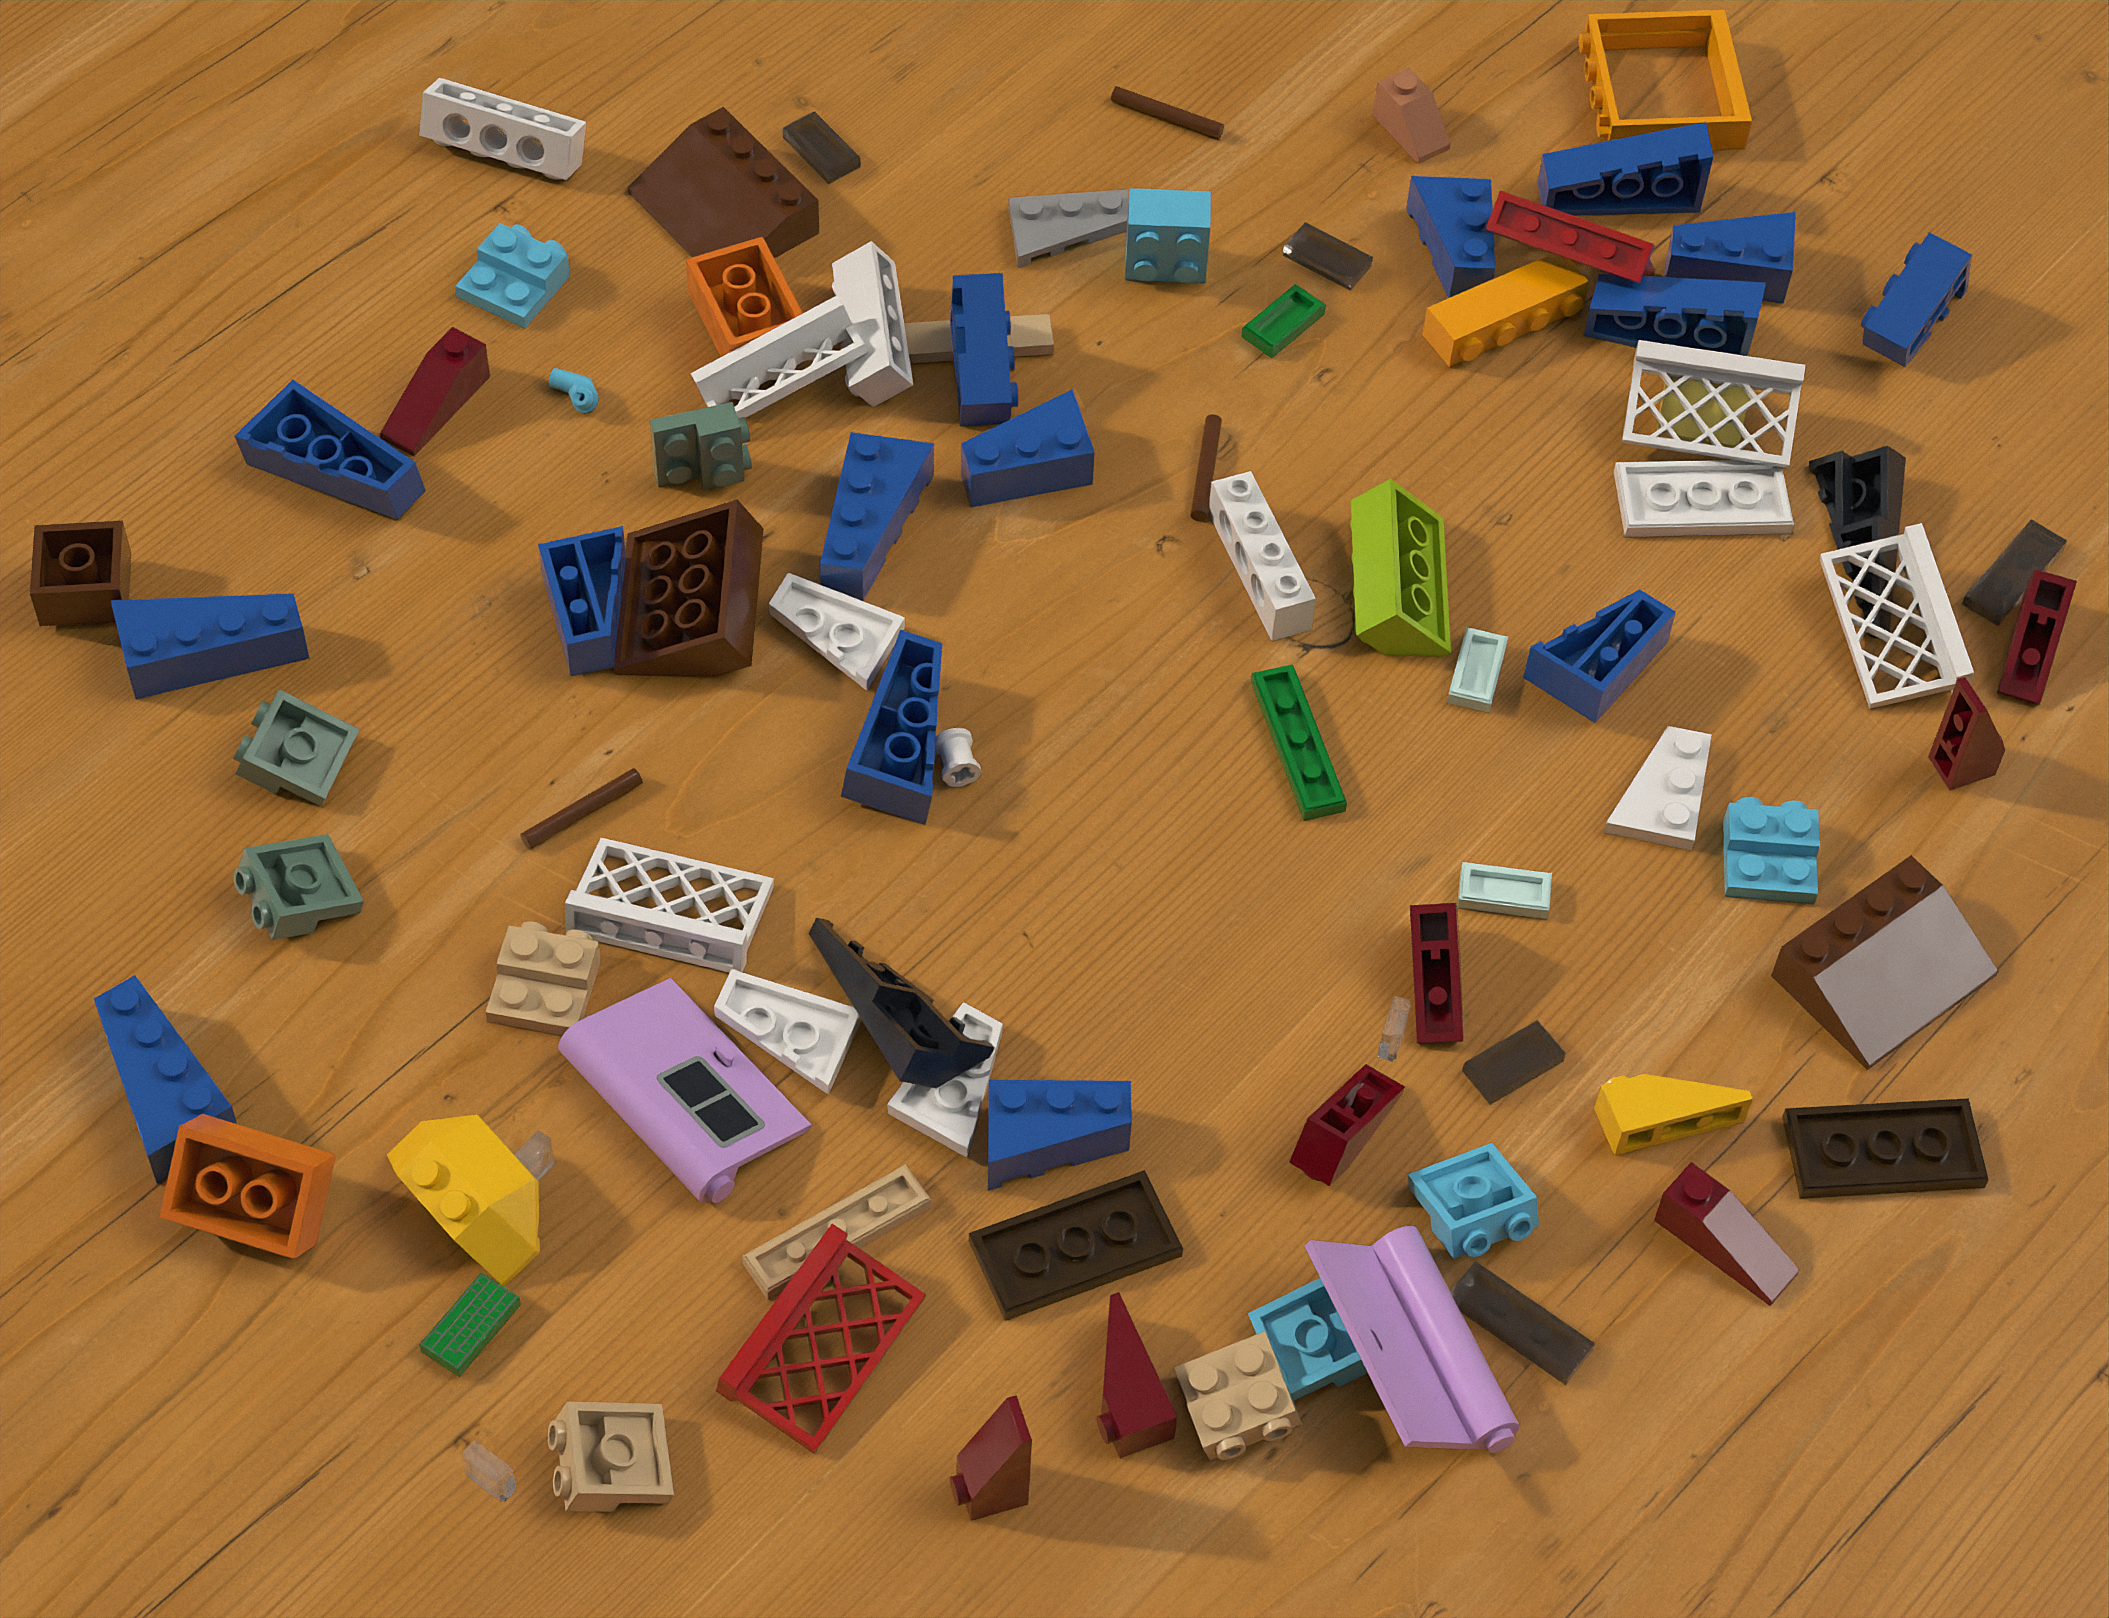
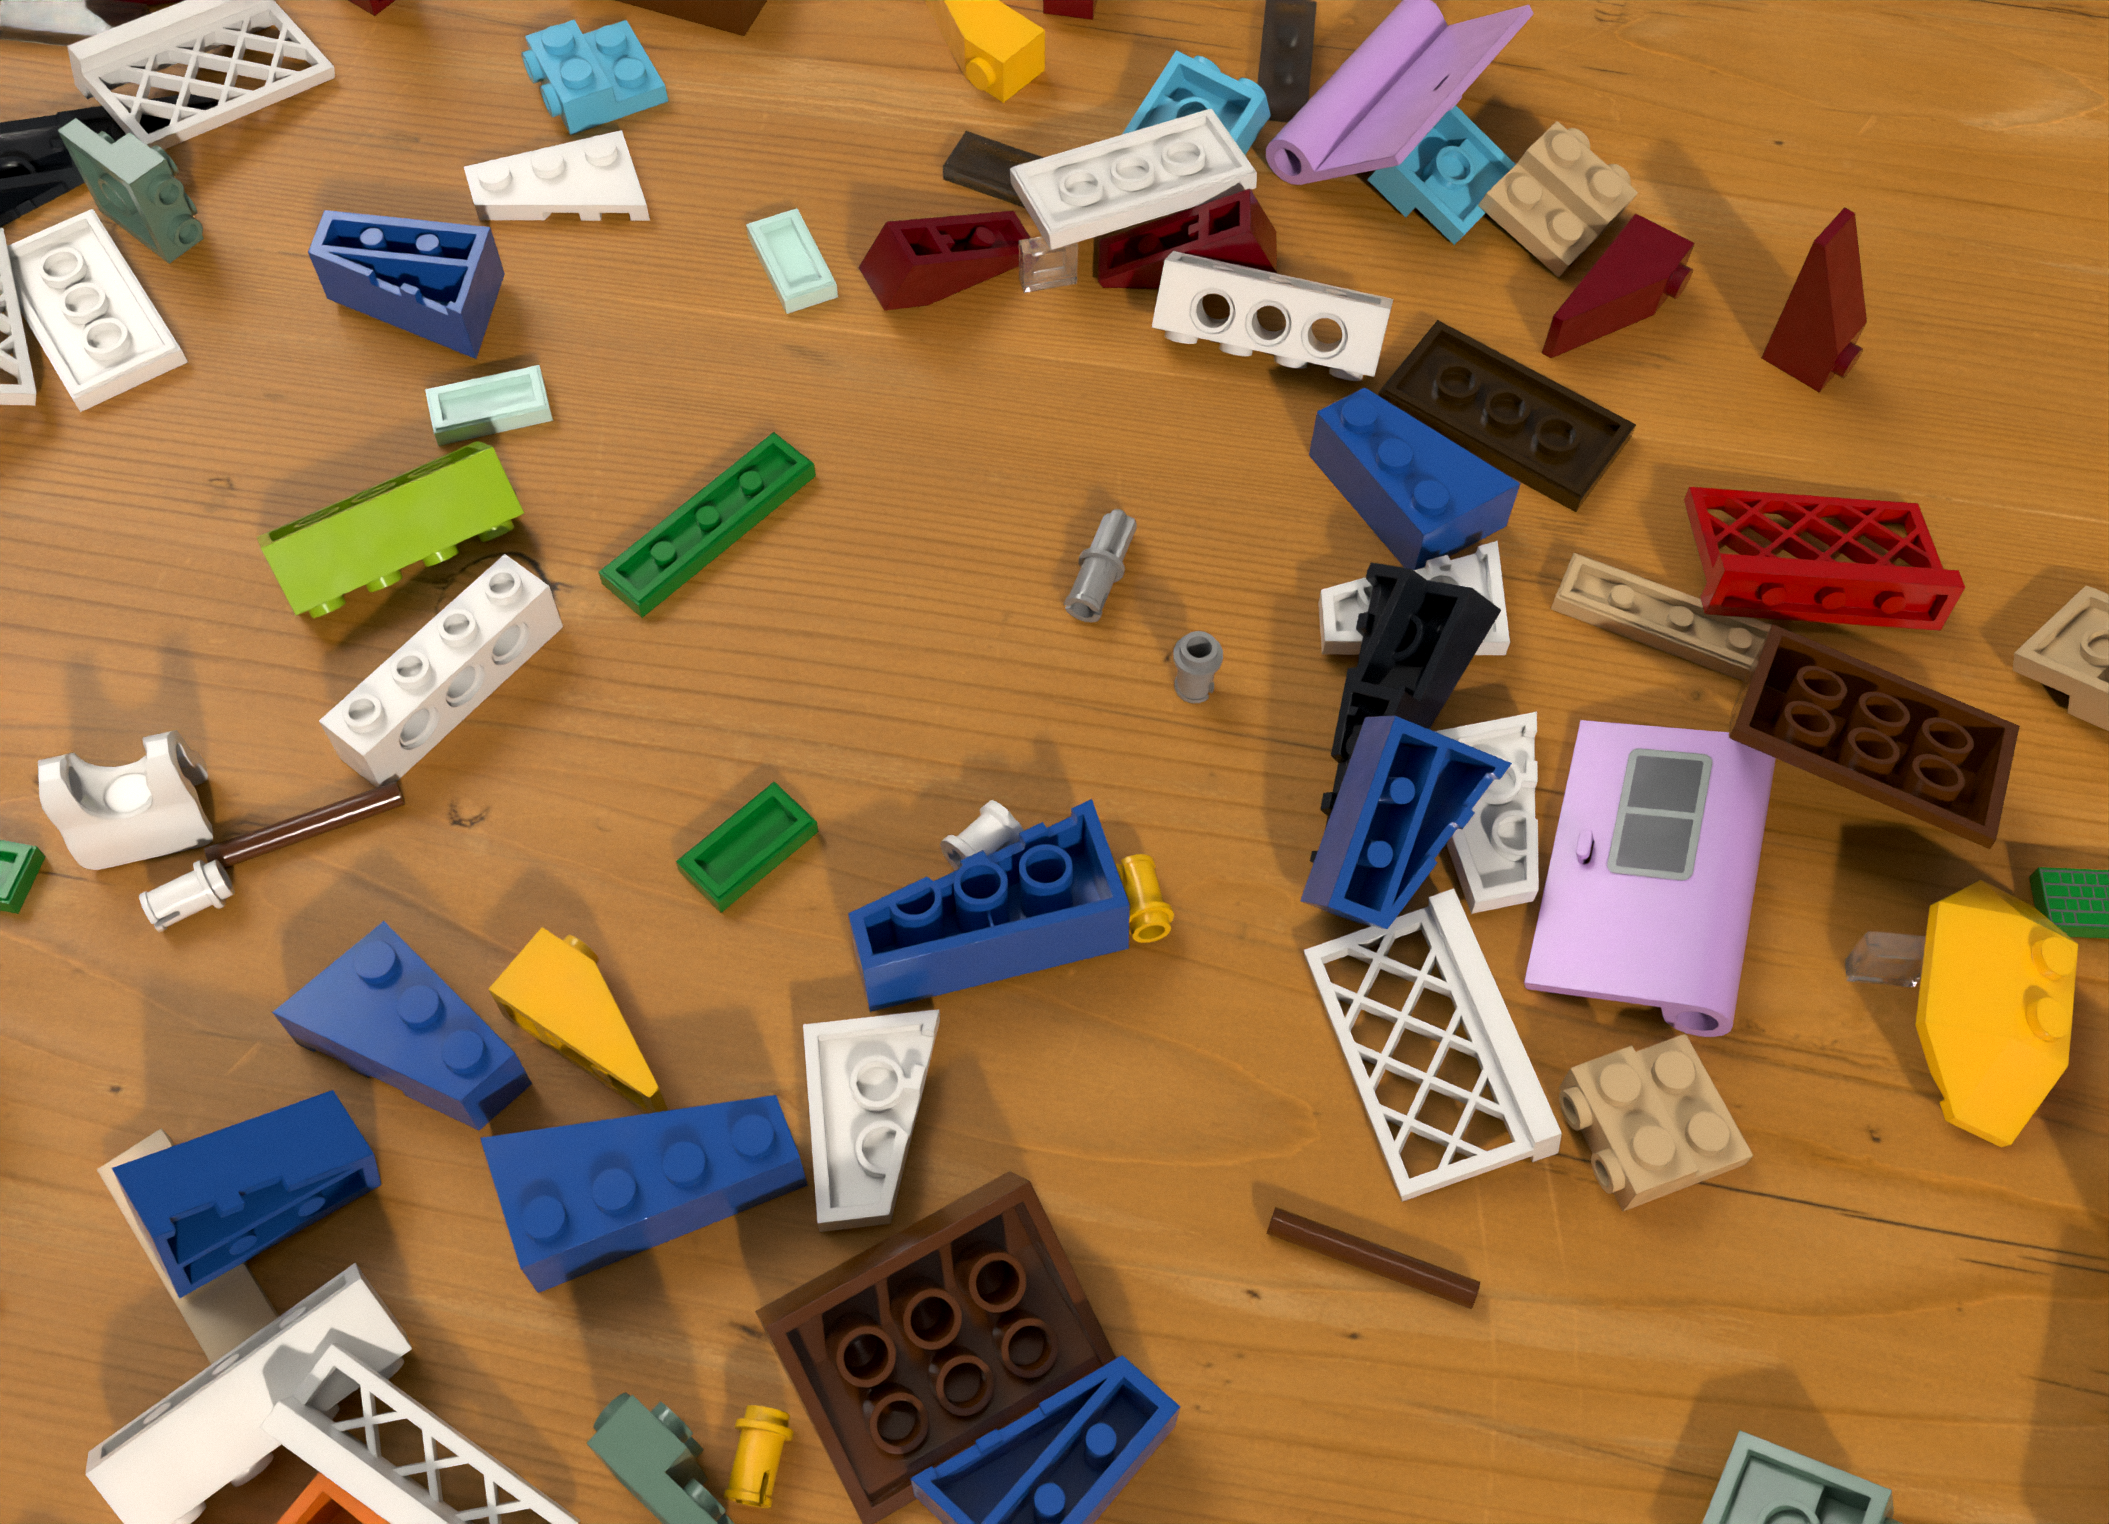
camera: 120 degrees left, 5 degrees up
(654, 1215) = (1876, 734): none -> reddish brown slope
(689, 499) = (758, 1455): none -> yellow pin
(805, 939) = (1393, 818): none -> blue wedge
(864, 816) = (1148, 912): none -> yellow pin
(983, 529) = (565, 1003): none -> yellow slope
(995, 917) = (1197, 660): none -> light grey pin
(1044, 656) = (747, 846): none -> green tile
(1113, 925) = (1101, 566): none -> light grey axle
(1192, 407) = (187, 894): none -> white pin
(1245, 1126) = (1359, 315): none -> white brick
(1268, 380) = (128, 809): none -> white piece
(1421, 1098) = (1132, 178): none -> white tile
(1772, 529) = (135, 188): none -> sand green plate

